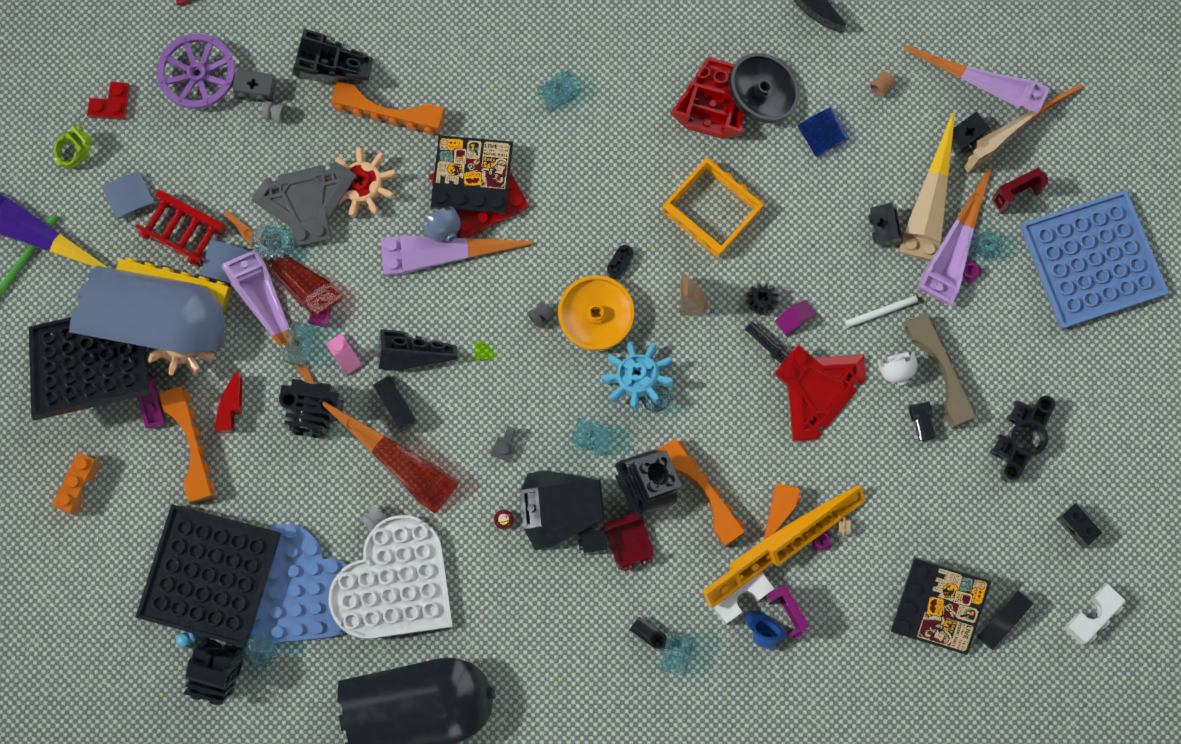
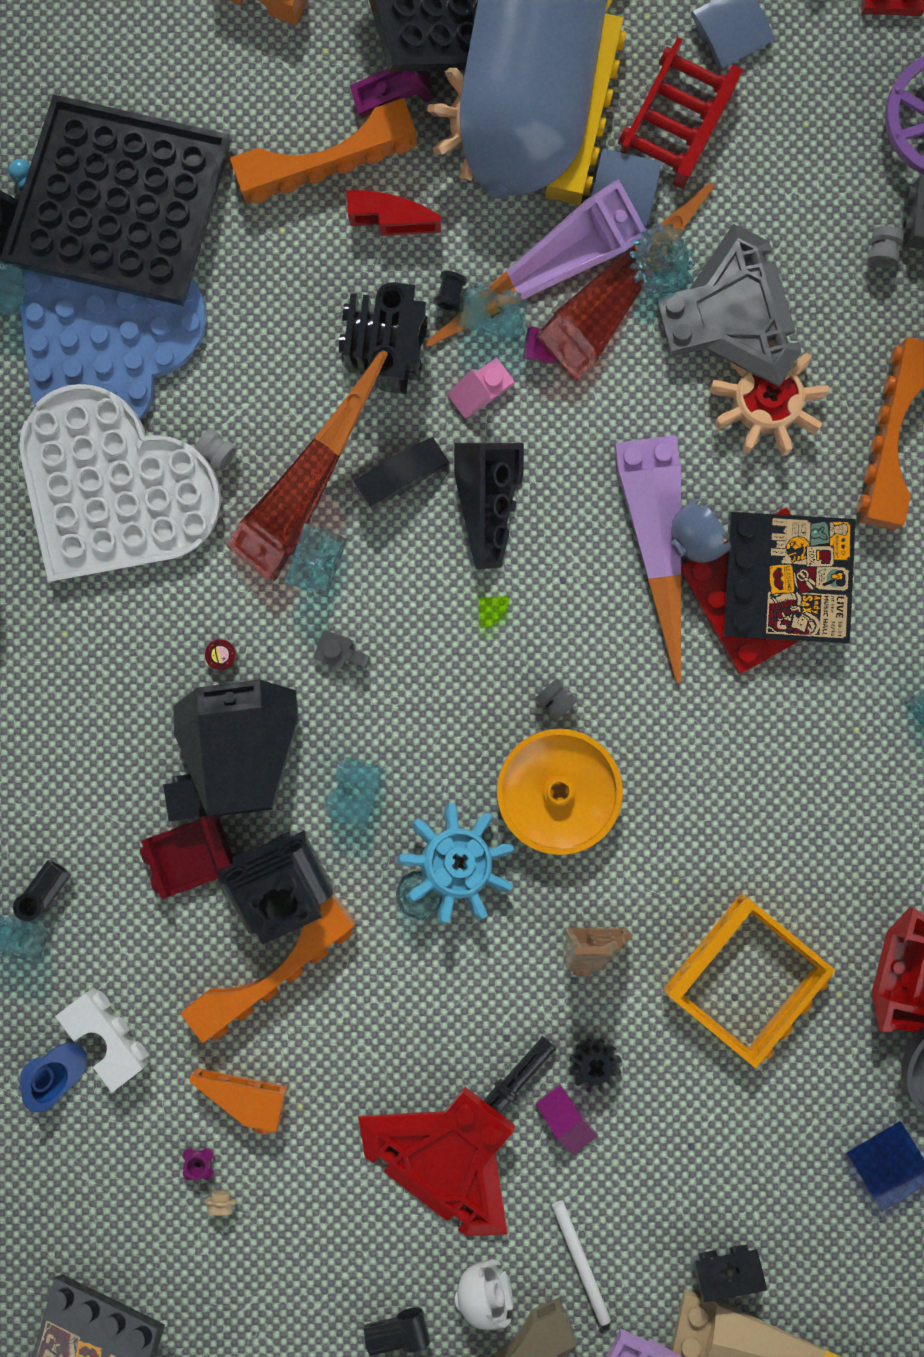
camera: 90 degrees right, 10 degrees up
(281, 370) = (450, 290): none -> black bush
(447, 455) = (316, 560): none -> clear light blue brick
(623, 264) = (647, 834): black beam -> none
(783, 544) = (181, 1106): light orange slope -> none
(791, 608) = (47, 1133): magenta panel -> none

